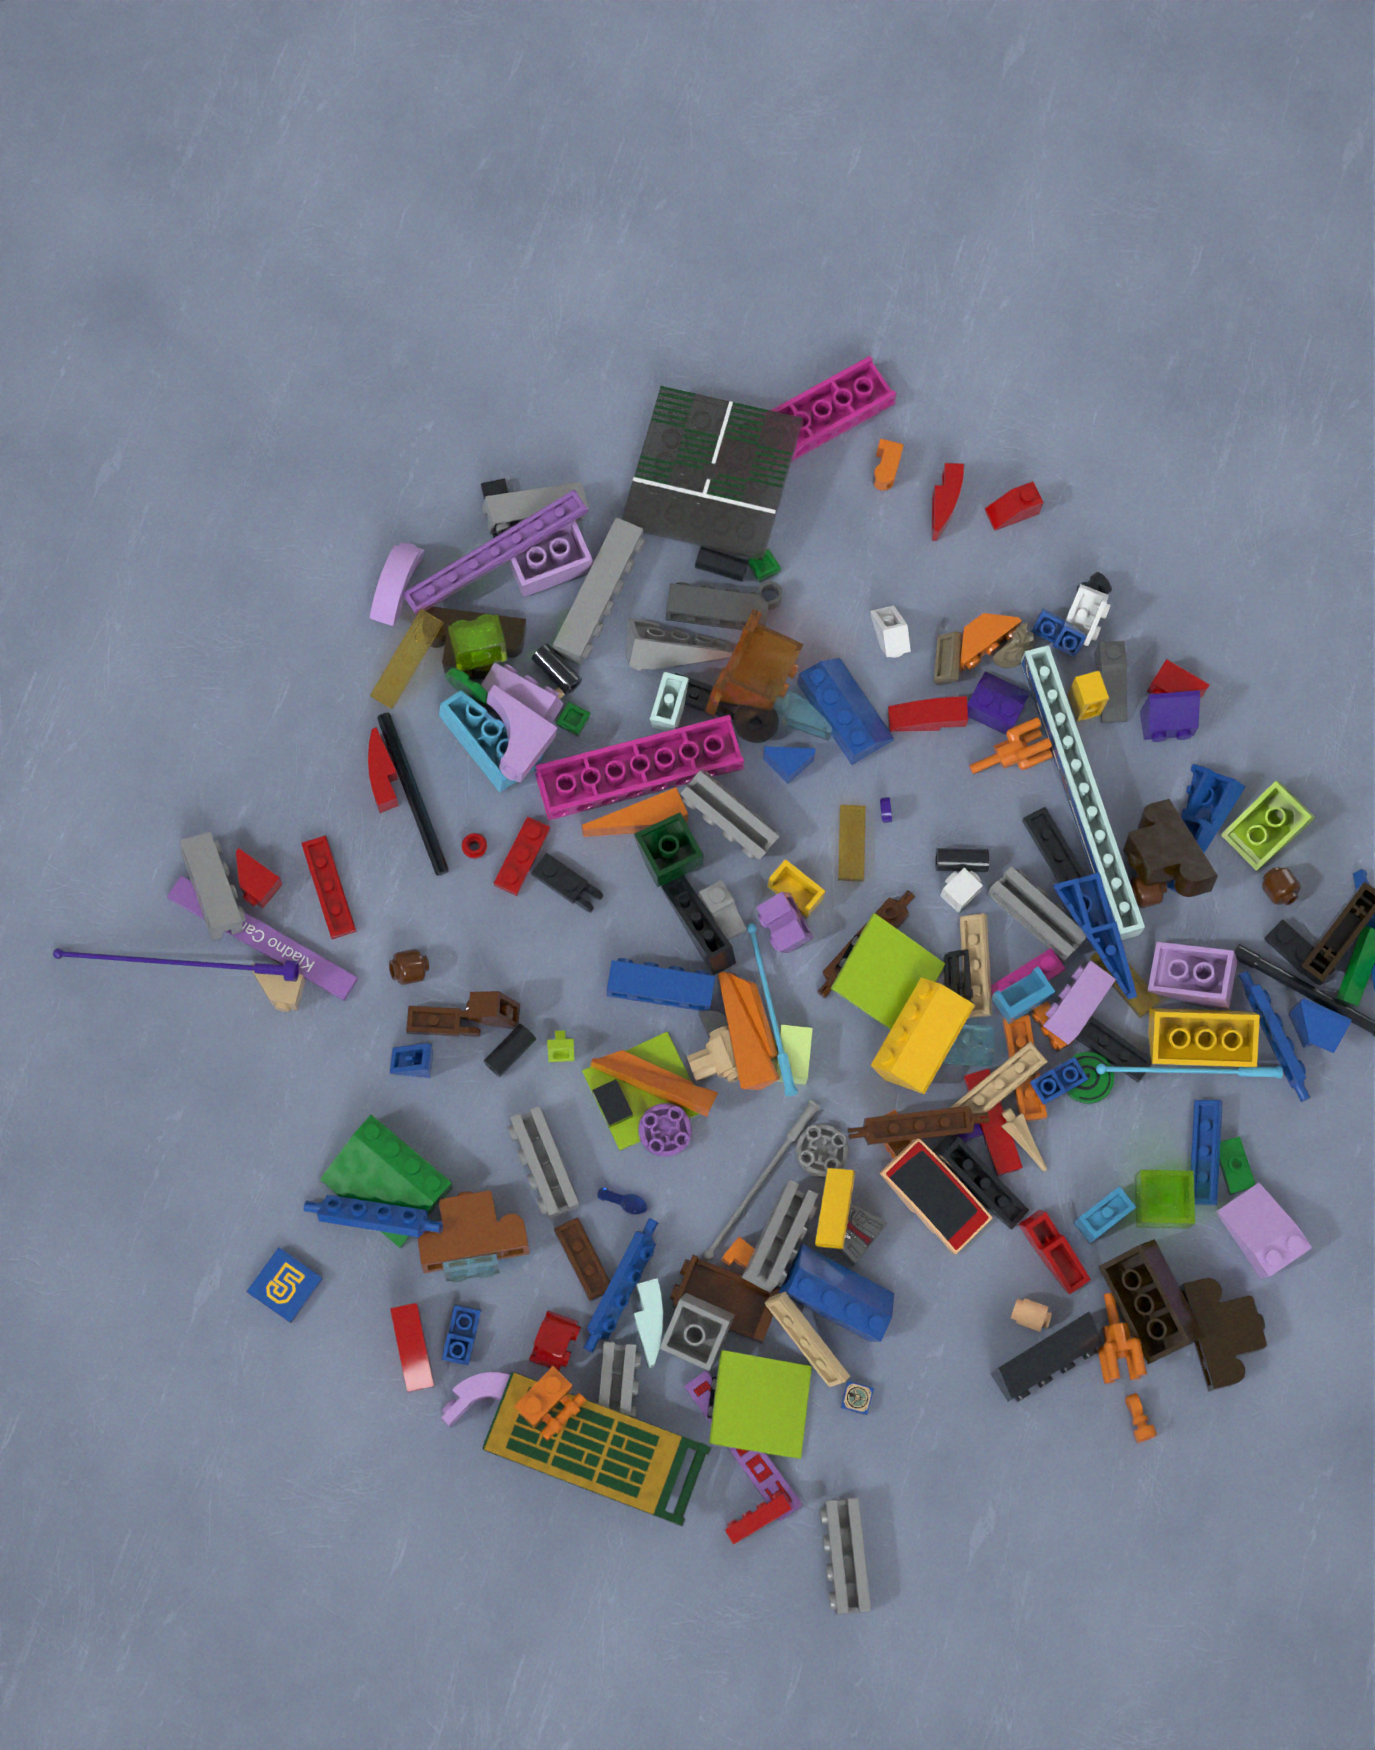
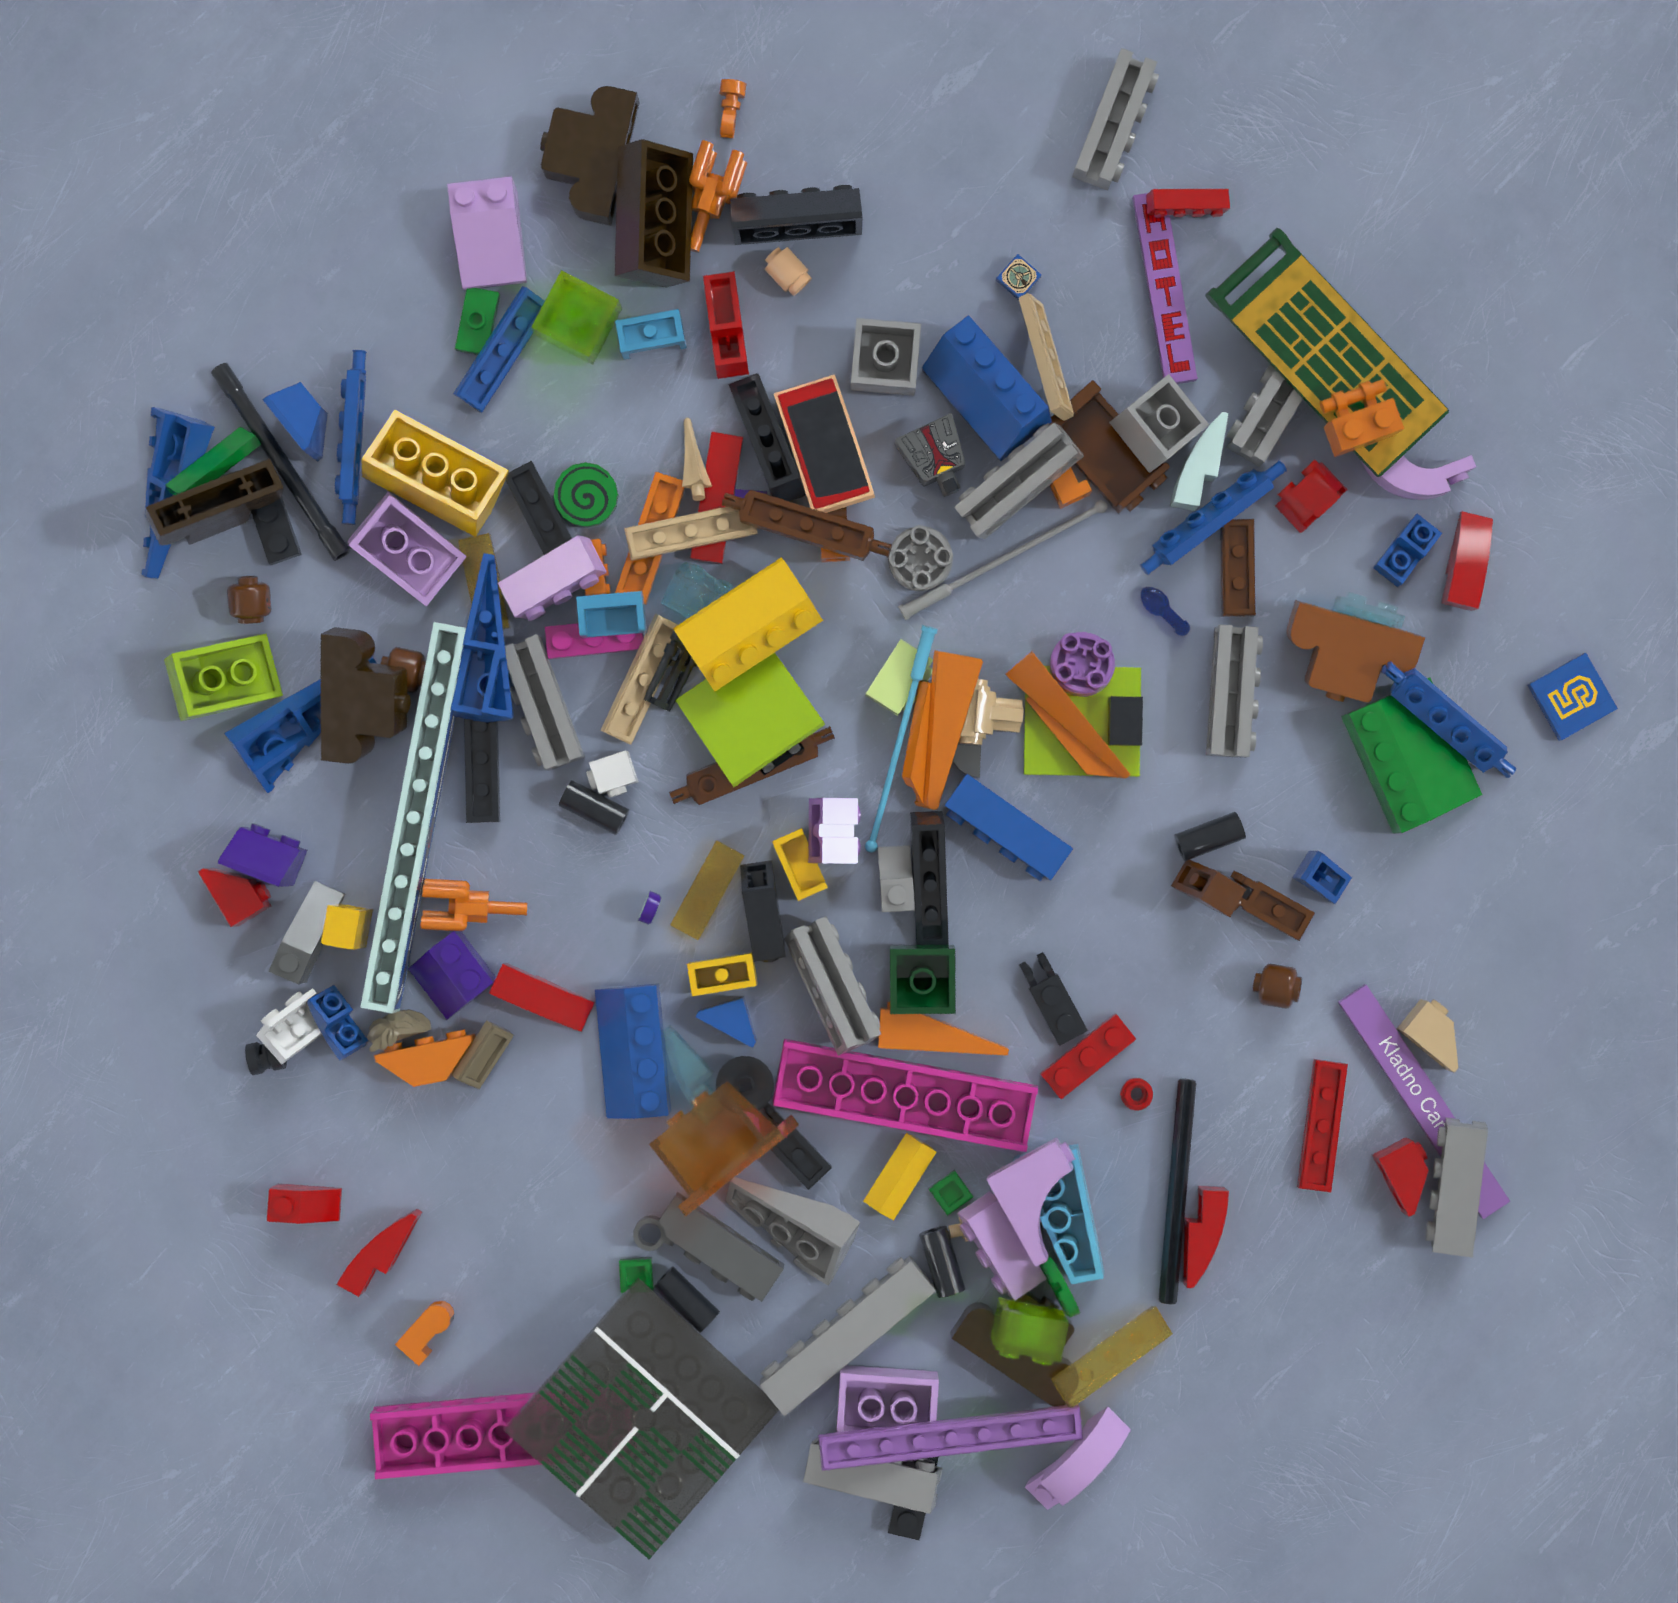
camera: 145 degrees left, 15 degrees up
(289, 970) = (1419, 1040): dark purple piece -> none
(560, 1048) = (1152, 811): lime tile -> none
(615, 711) = (900, 1176): none -> yellow piece
(669, 702) = (834, 1154): light aqua slope -> none
(759, 1404) = (1129, 317): lime piece -> none
(806, 844) = (762, 911): none -> black slope
(811, 787) = (722, 974): none -> yellow brick
(835, 1208) = (944, 481): yellow tile -> none
(891, 631) = (531, 1120): white slope -> none
(925, 1282) = (885, 356): none -> light grey brick
(1058, 1080) = (622, 503): blue slope -> none
(1259, 1071) = (389, 406): medium azure piece -> none

